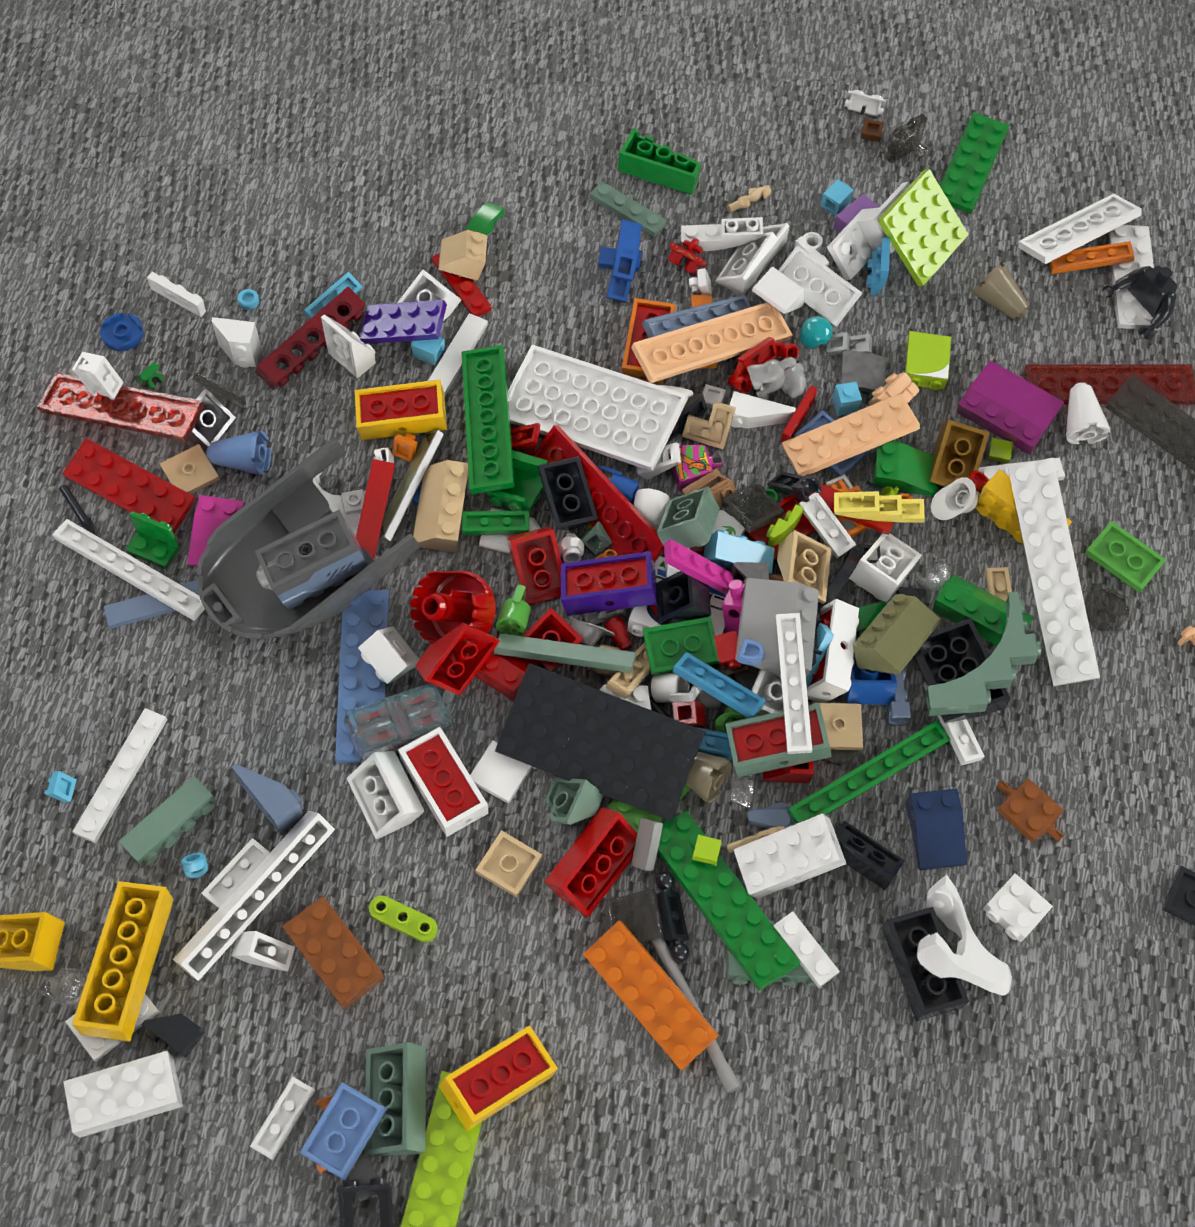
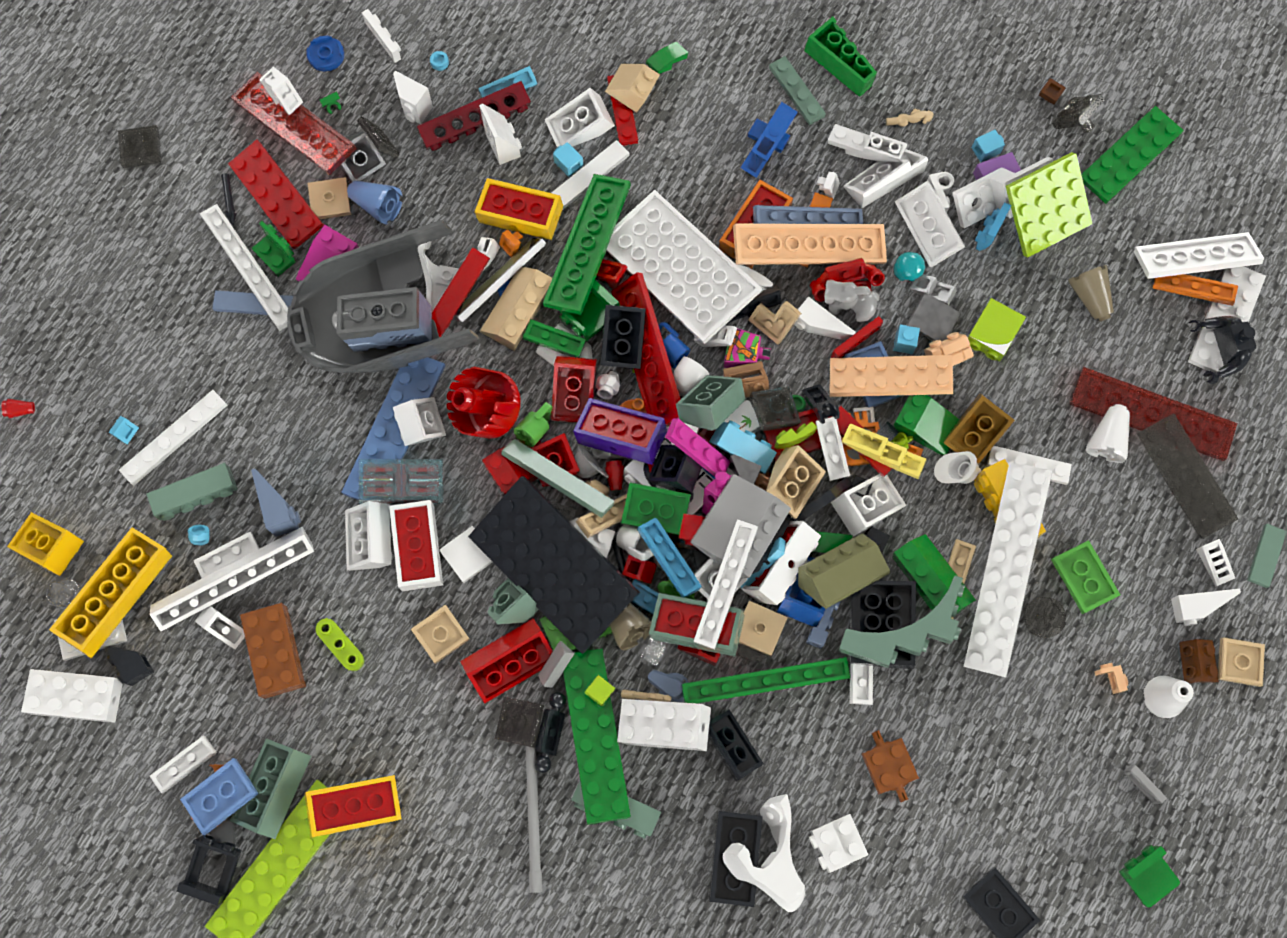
camera: 25 degrees right, 10 degrees up
(403, 321) = (555, 129): plate -> none
(456, 658) = (465, 448): red slope -> none
(596, 538) = (633, 384): sand green slope -> none
(651, 995) = (504, 789): orange plate -> none
(678, 253) = (832, 161): red hips -> none
(713, 394) = (791, 292): white tile -> none
(751, 653) = (703, 543): medium blue tile -> none
(780, 291) = (891, 219): white slope -> none
(806, 949) = (641, 806): white plate -> none
(872, 103) = (1053, 57): white hinge -> none
(935, 578) = (906, 532): clear hair -> none
(937, 828) = (802, 750): dark blue slope -> none
(978, 479) = (984, 458): red tile -> none
(1000, 450) = (1022, 437): lime tile -> none
(1009, 407) = (1049, 400): magenta slope -> none

